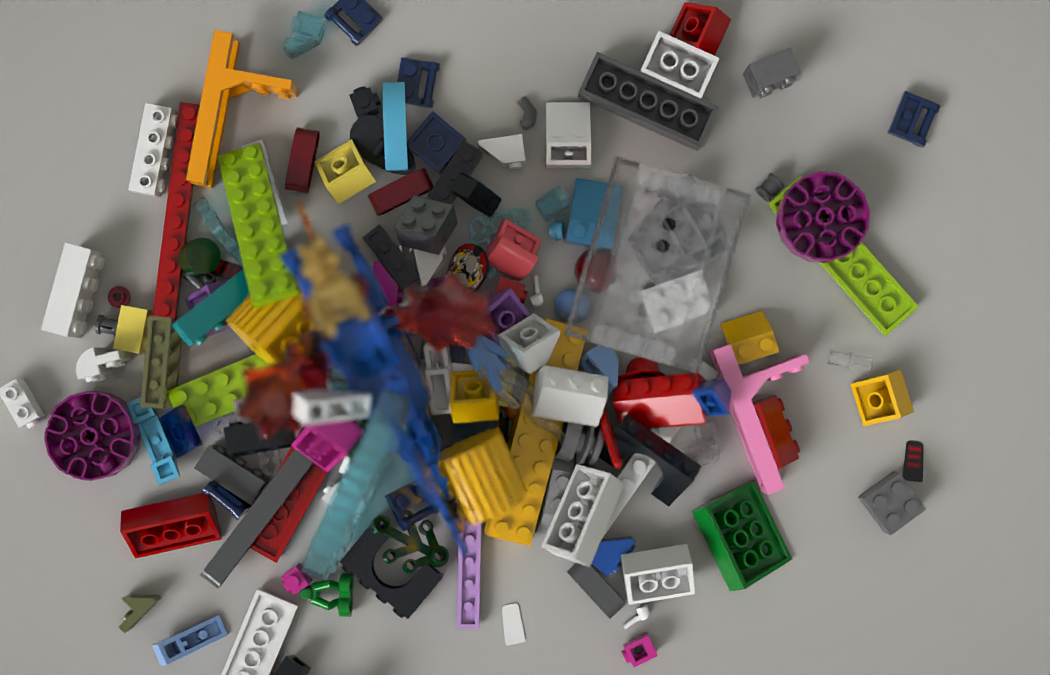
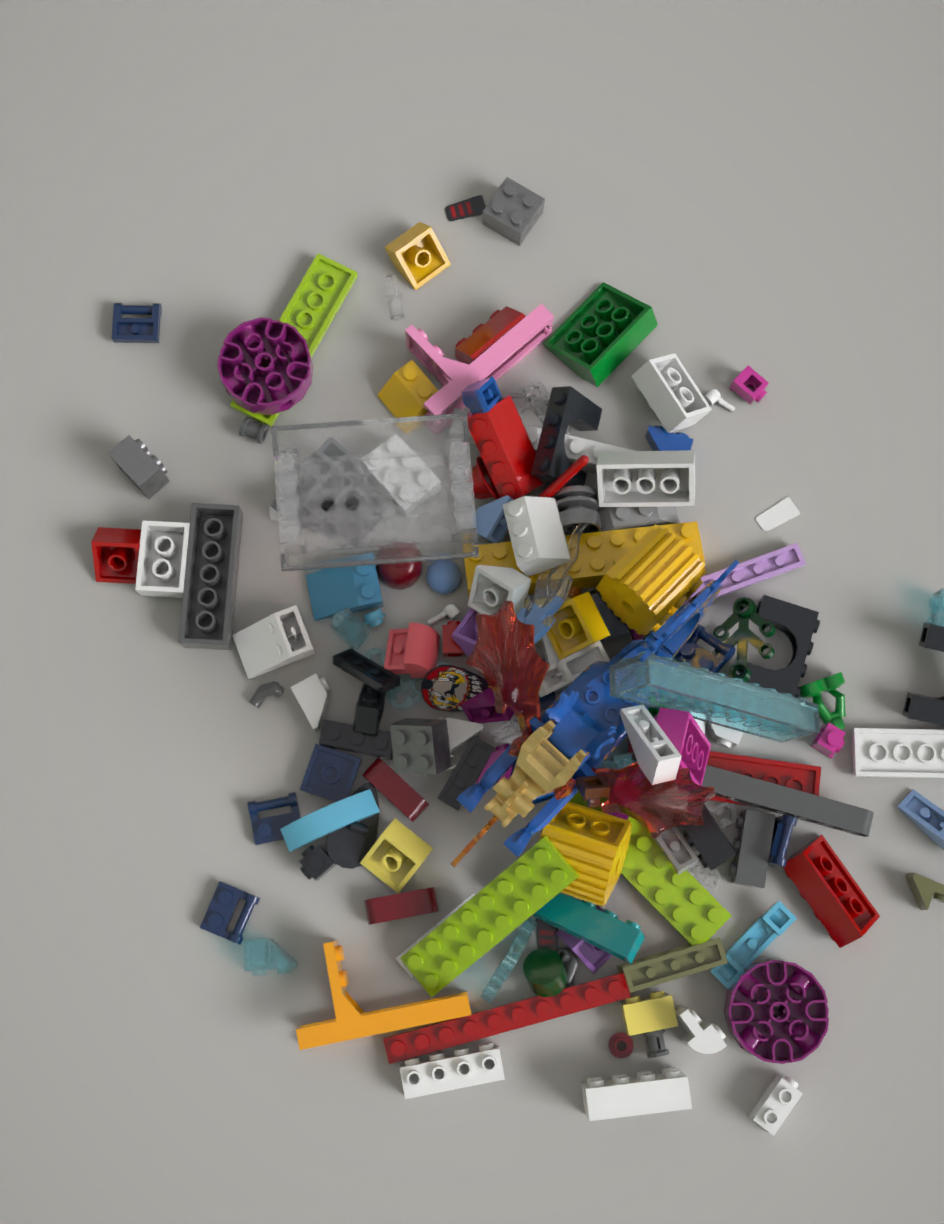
camera: 115 degrees left, 10 degrees down
(180, 431) = (732, 917): clear blue tile -> none
(510, 203) = (366, 670): none -> black plate
(597, 588) = (710, 445): dark grey beam -> none

